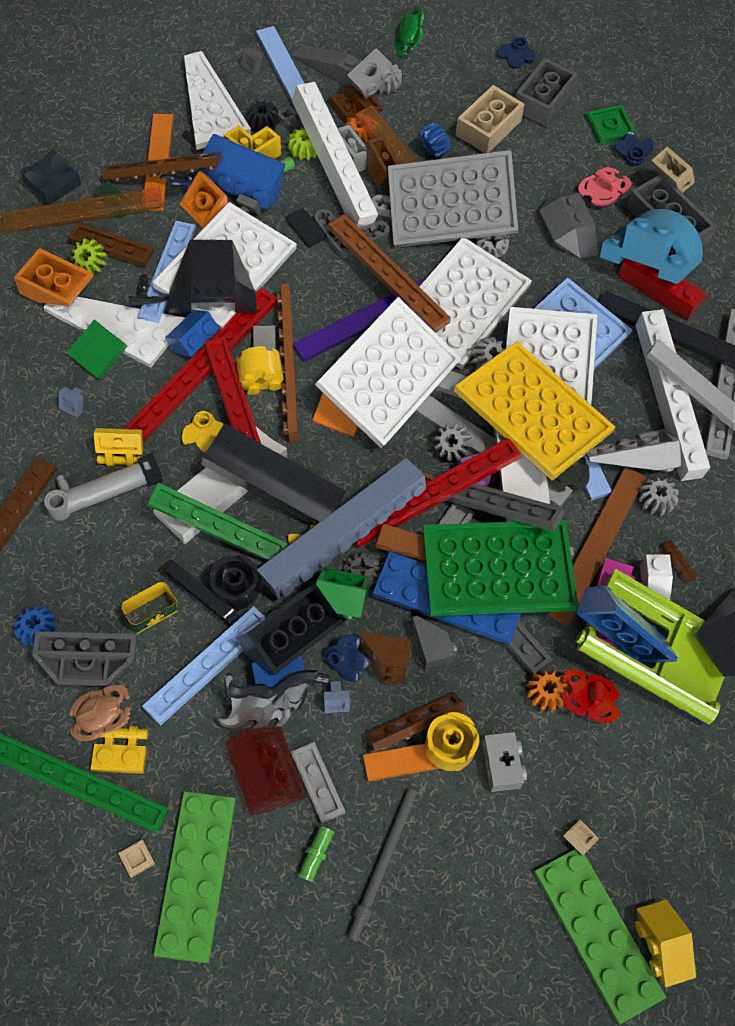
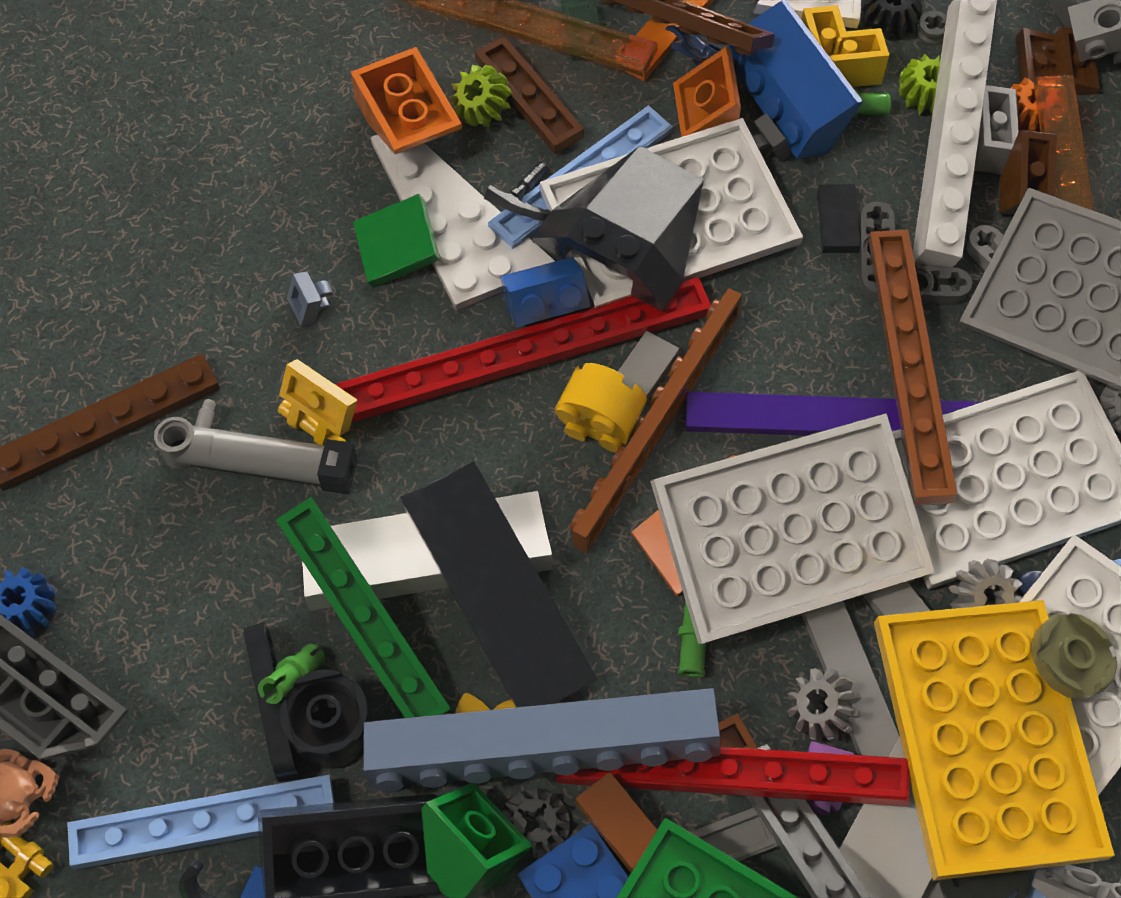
camera: 40 degrees right, 0 degrees up
(146, 596) = (181, 657): yellow piece -> none
(201, 434) = (451, 454): yellow plate -> none
(202, 572) = (289, 671): none -> bright green pin
(230, 387) = (536, 417): red tile -> none
(377, 453) = (692, 654): none -> bright green pin
(545, 356) = (1073, 656): none -> olive tile

